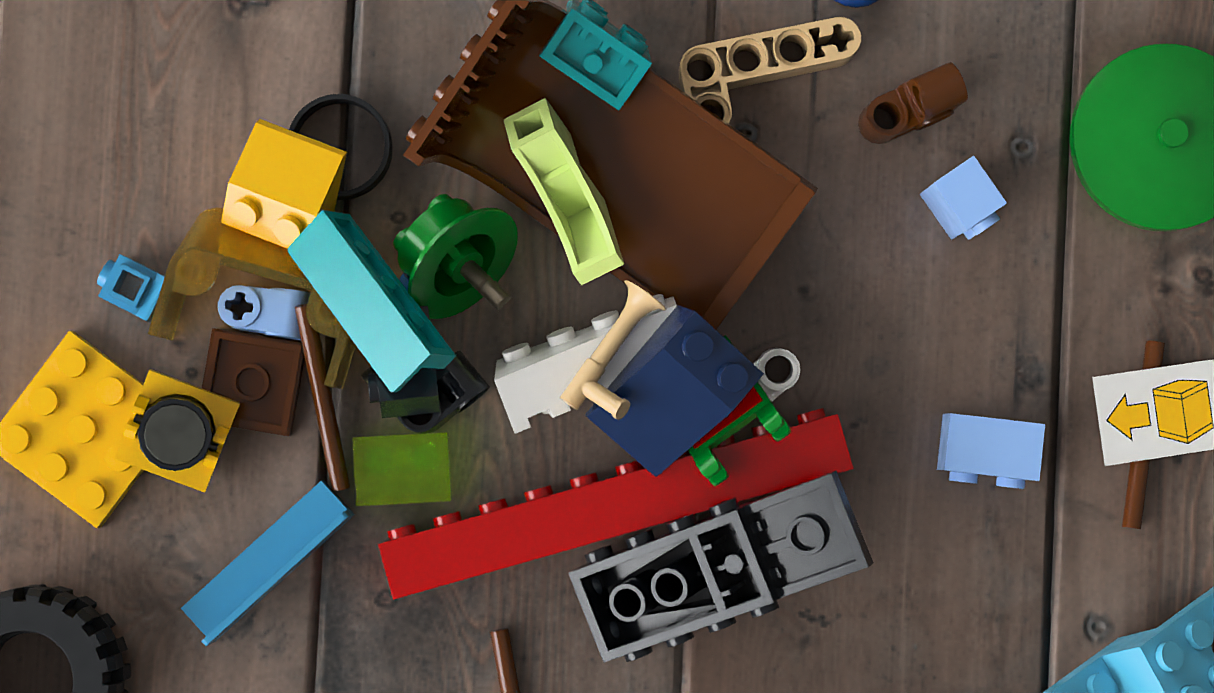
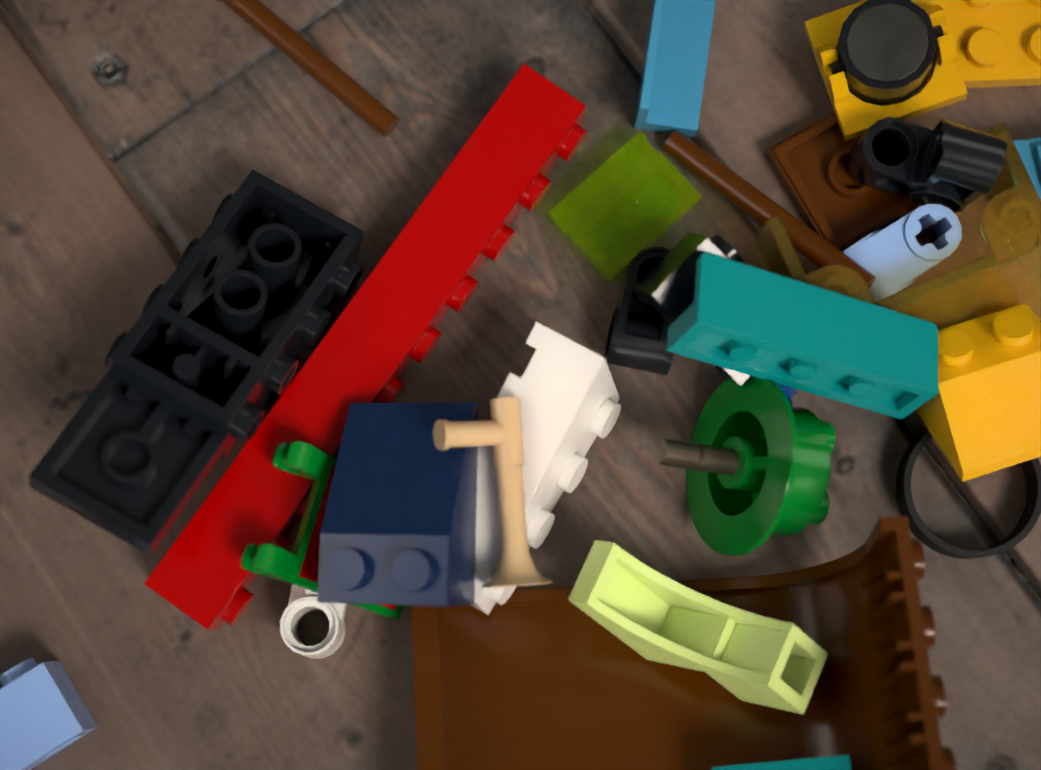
camera: 140 degrees right, 5 degrees down
(207, 346) = (931, 166): none -> black piece

